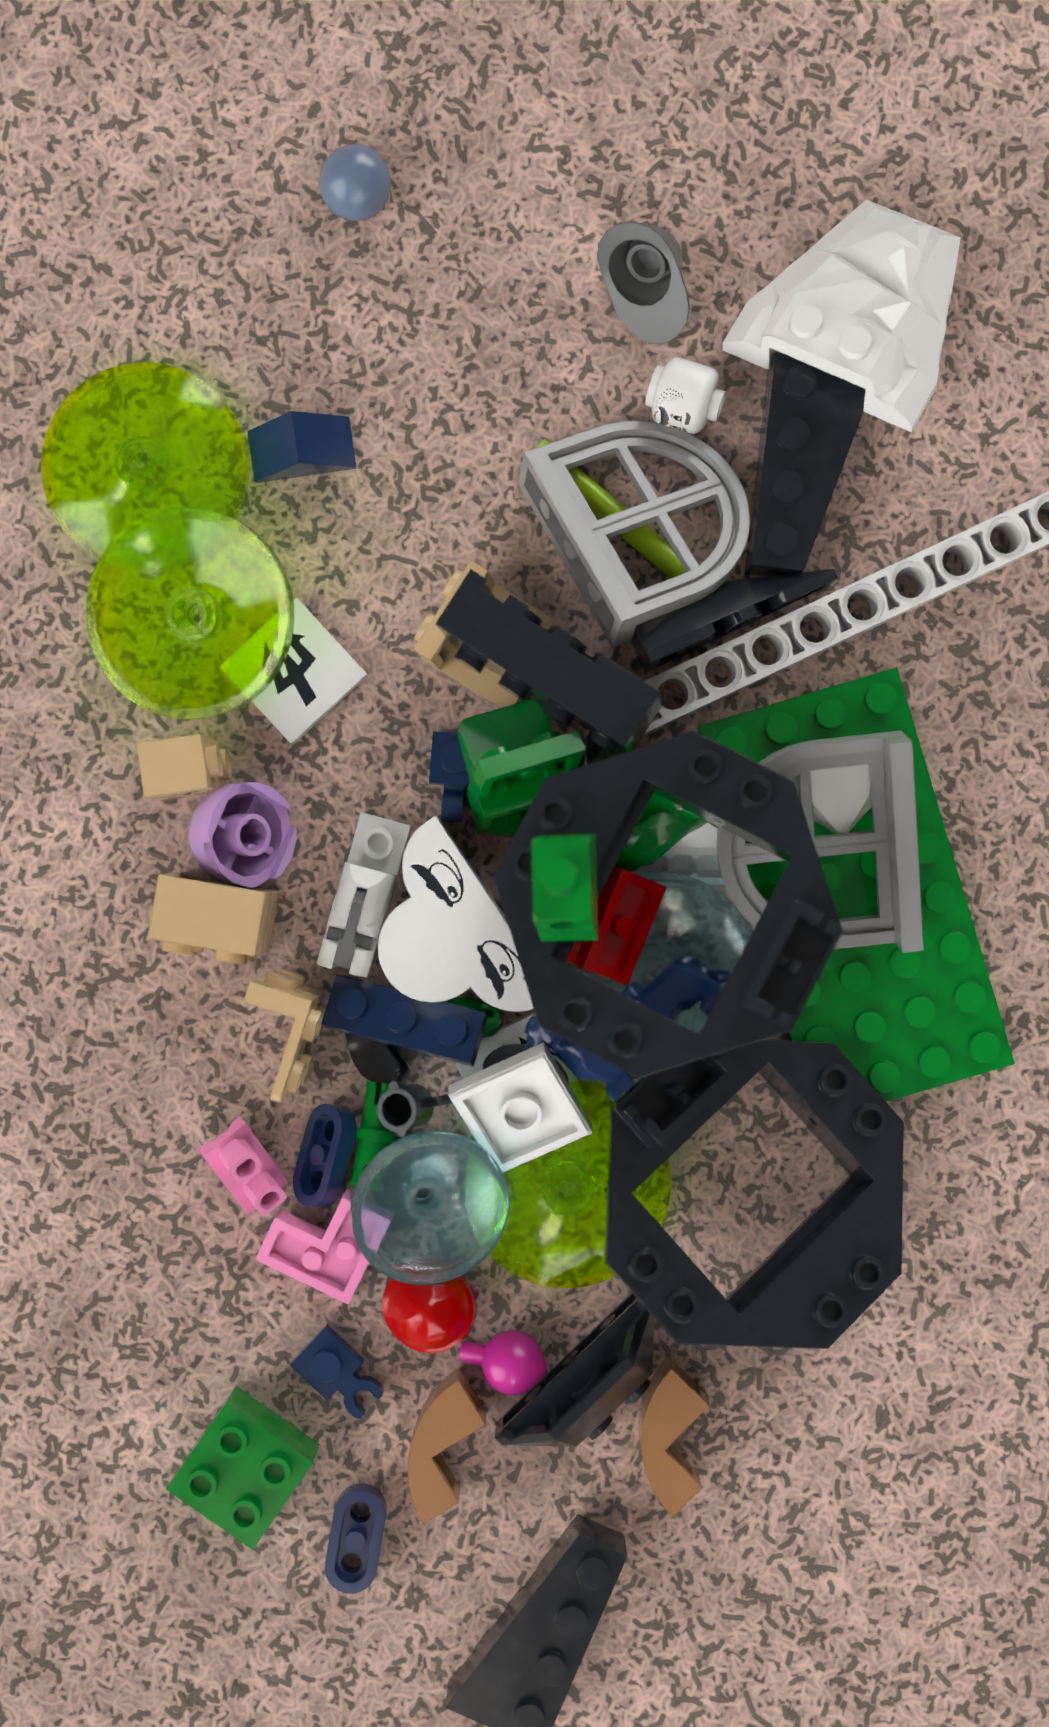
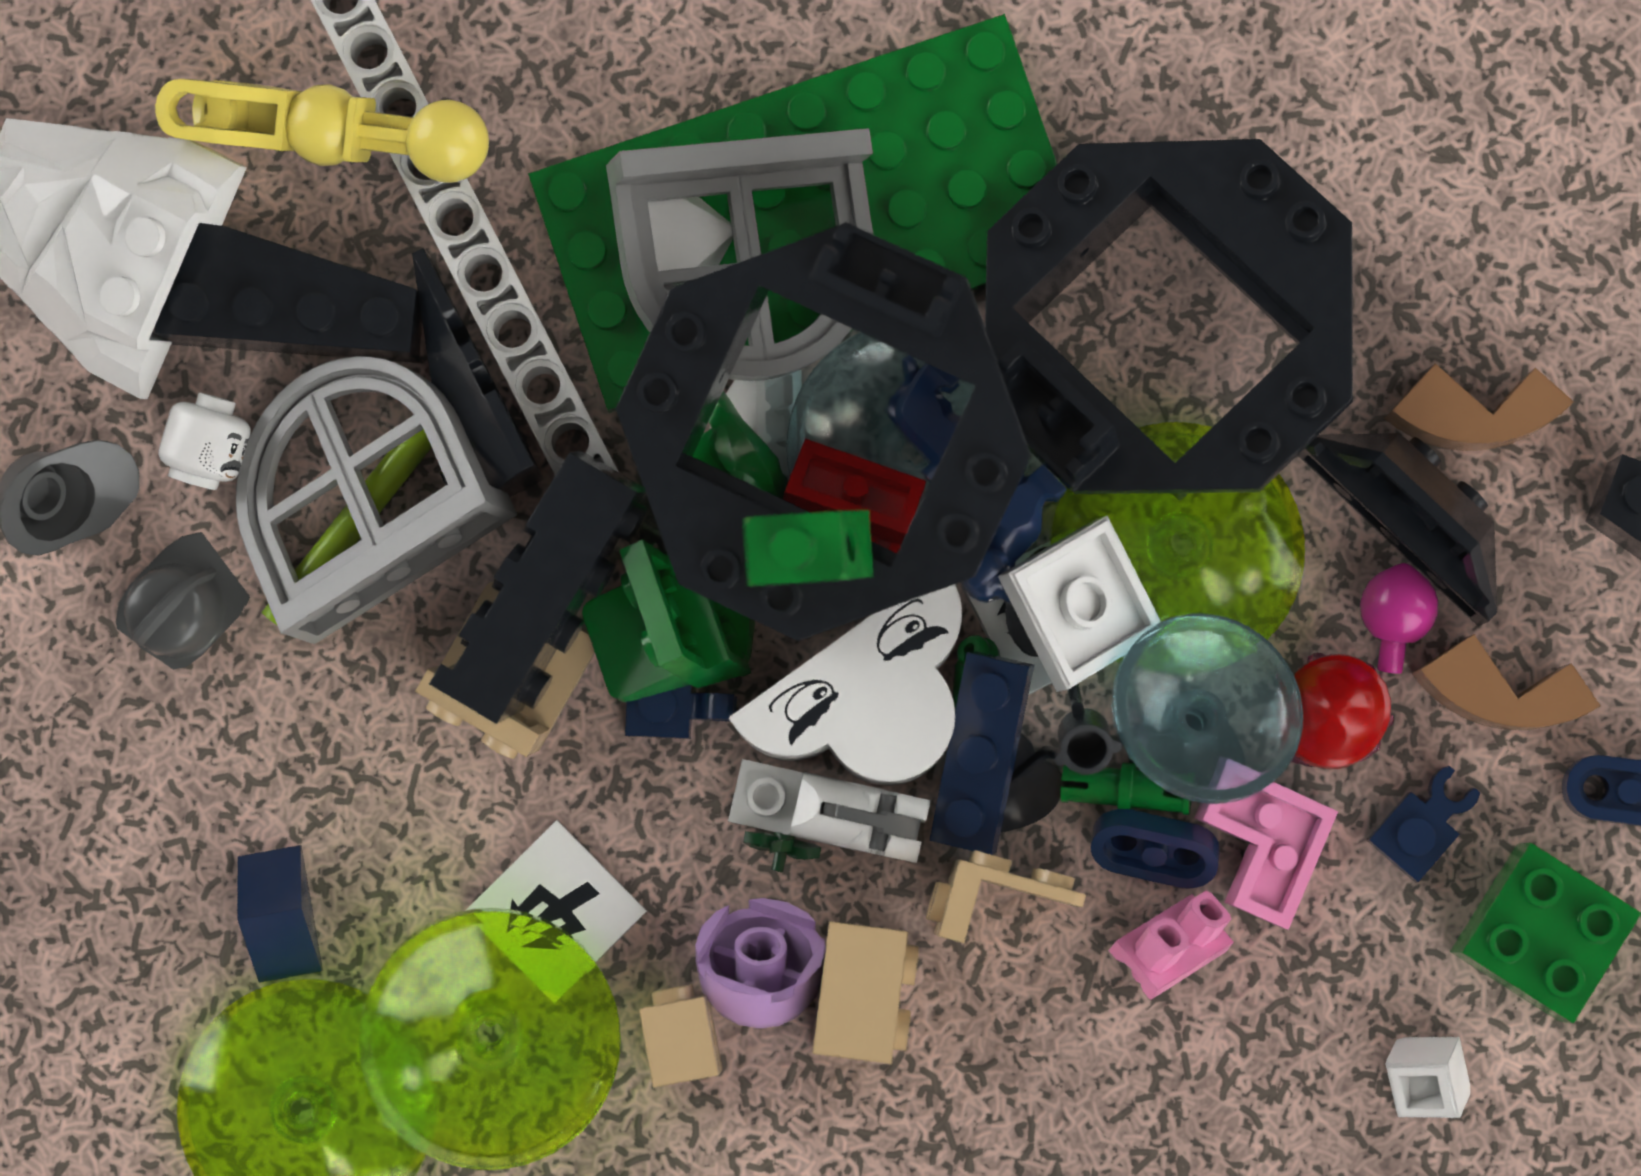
camera: 85 degrees left, 5 degrees down
(135, 1364) = (1428, 1077): none -> white slope
(338, 855) = (781, 846): none -> dark green plant
(556, 376) = (181, 602): none -> dark grey piece
(943, 499) = (327, 125): none -> light yellow piece

